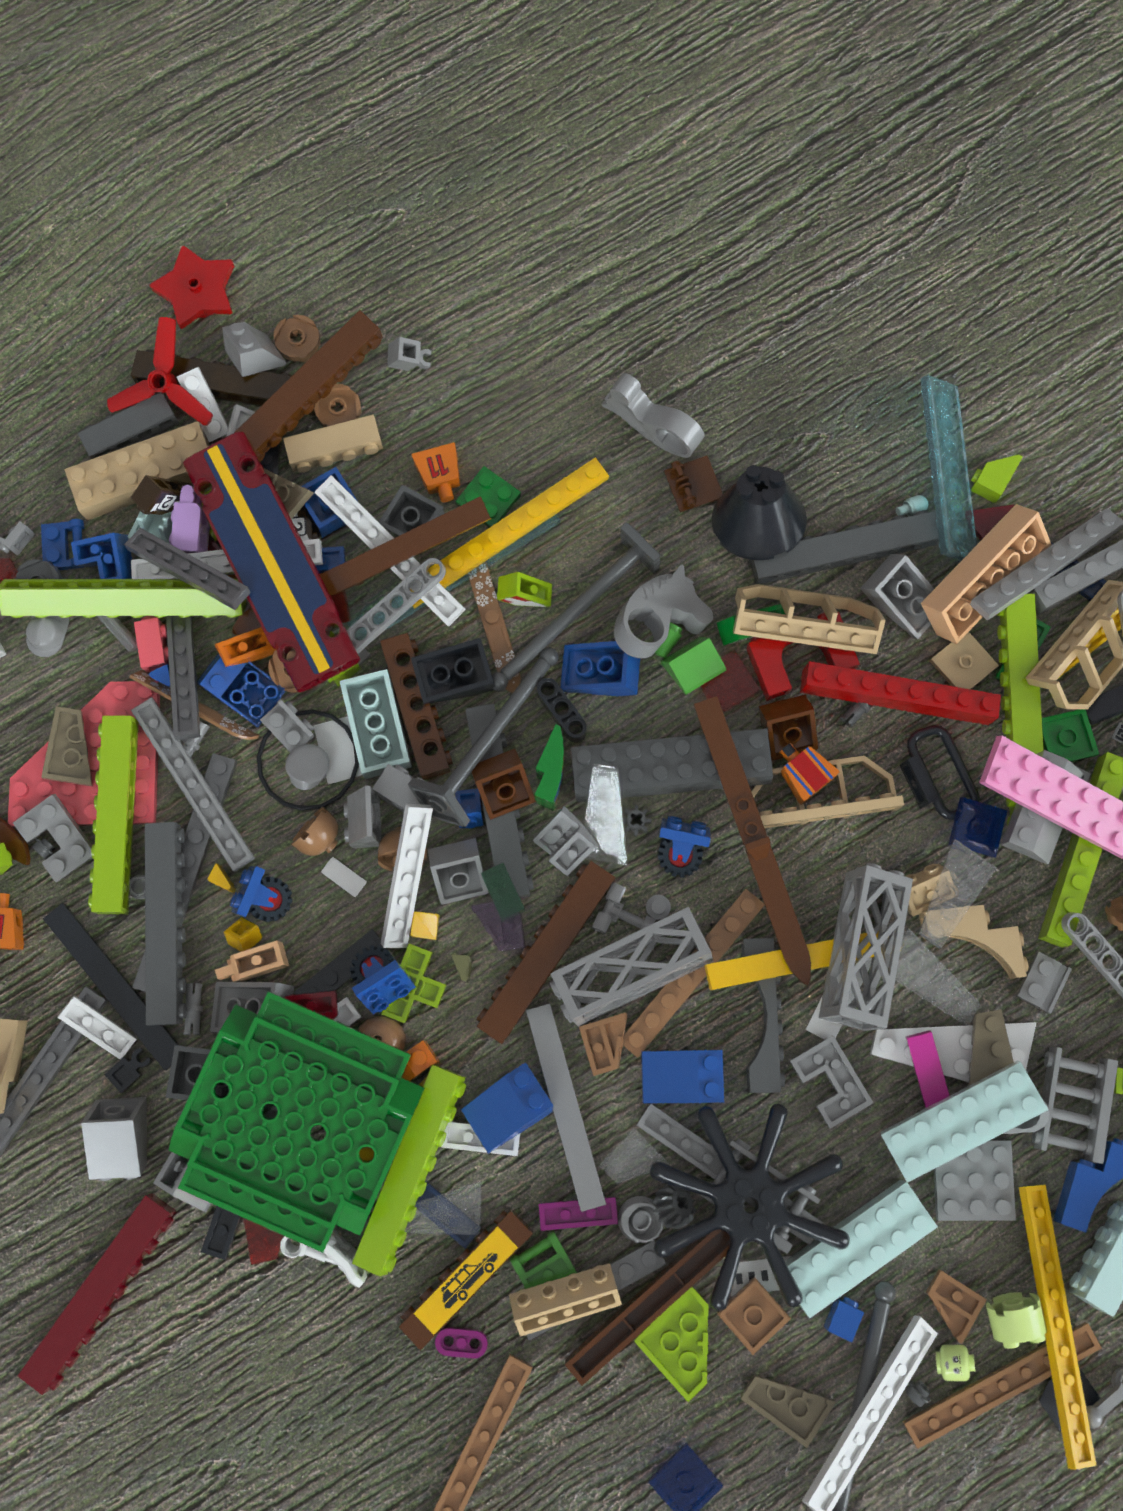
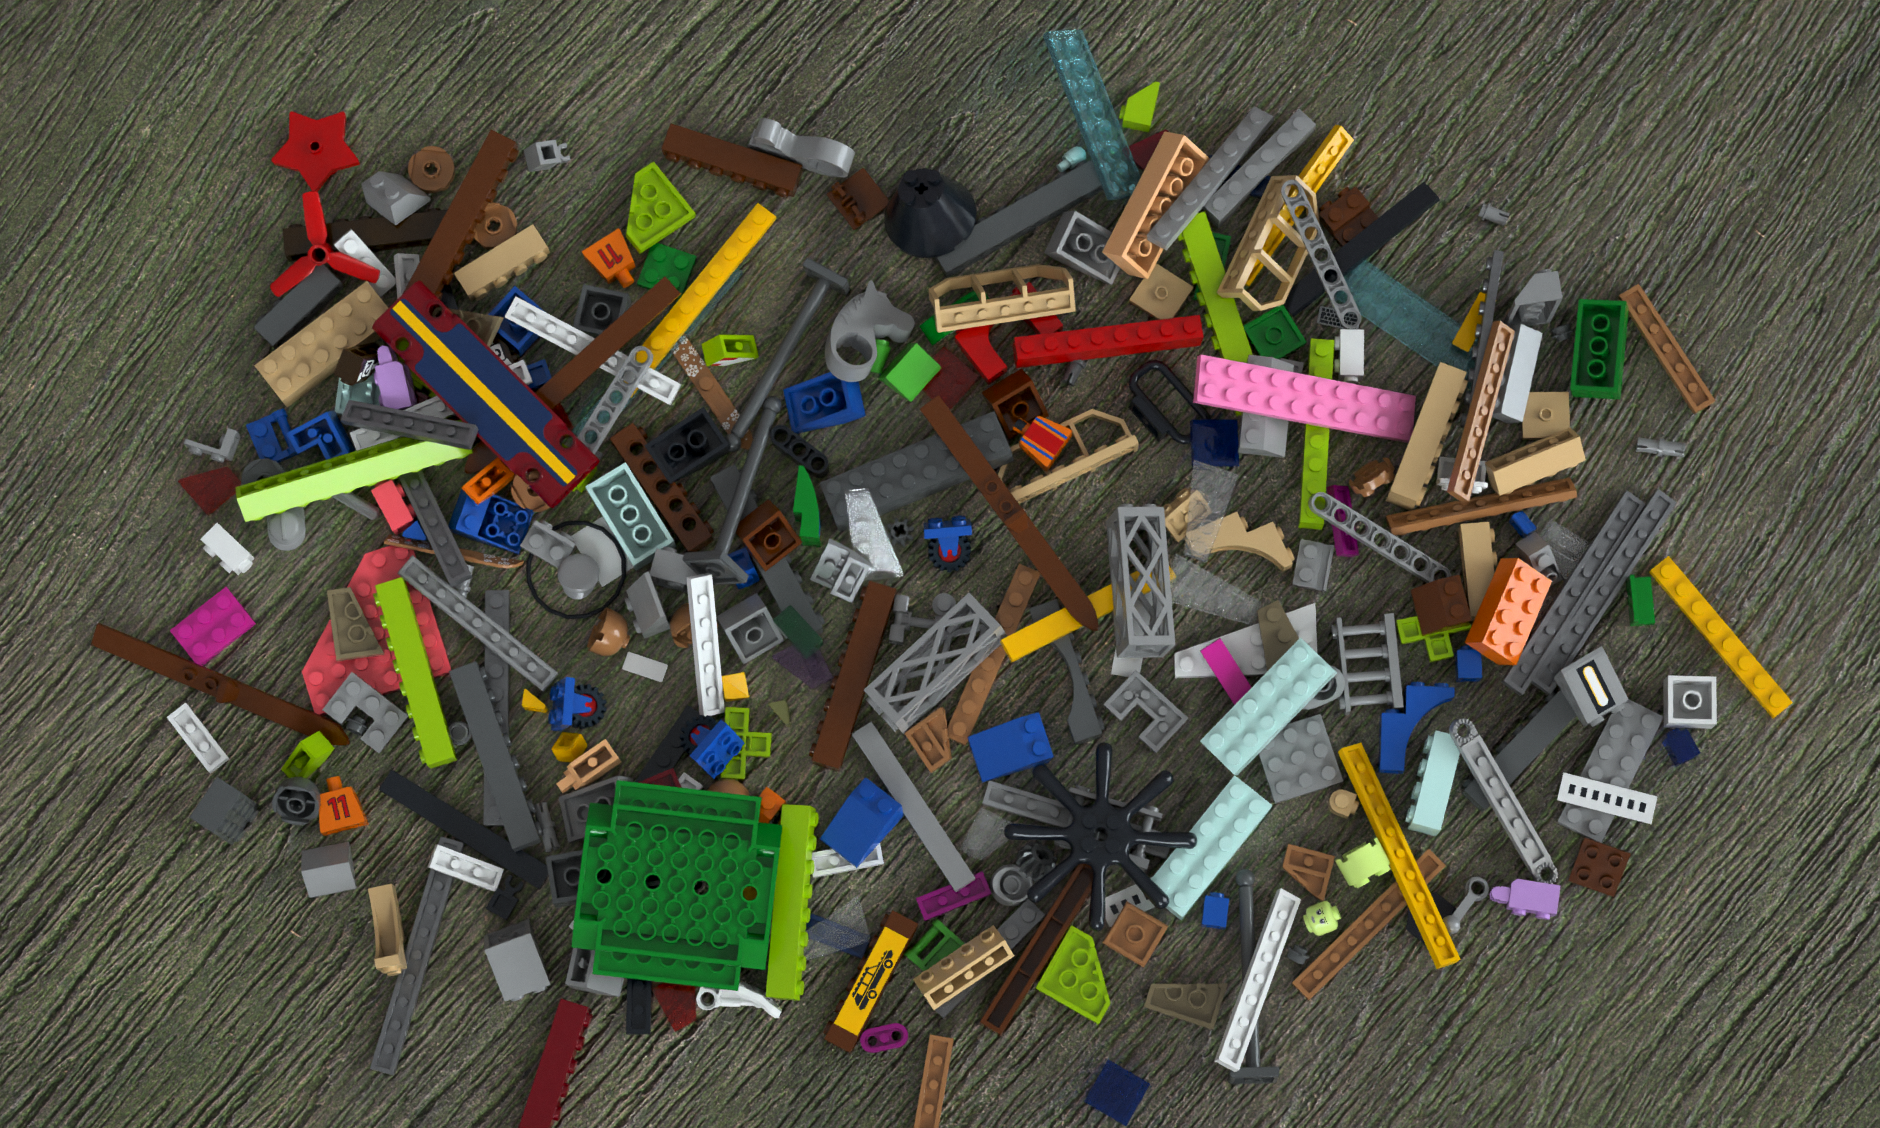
camera: 15 degrees left, 0 degrees up
(495, 435) = (655, 209): none -> lime plate
(583, 412) = (731, 160): none -> reddish brown brick
(1009, 1244) = (1343, 803): none -> tan plate
(1083, 970) = (1344, 543): none -> magenta plate

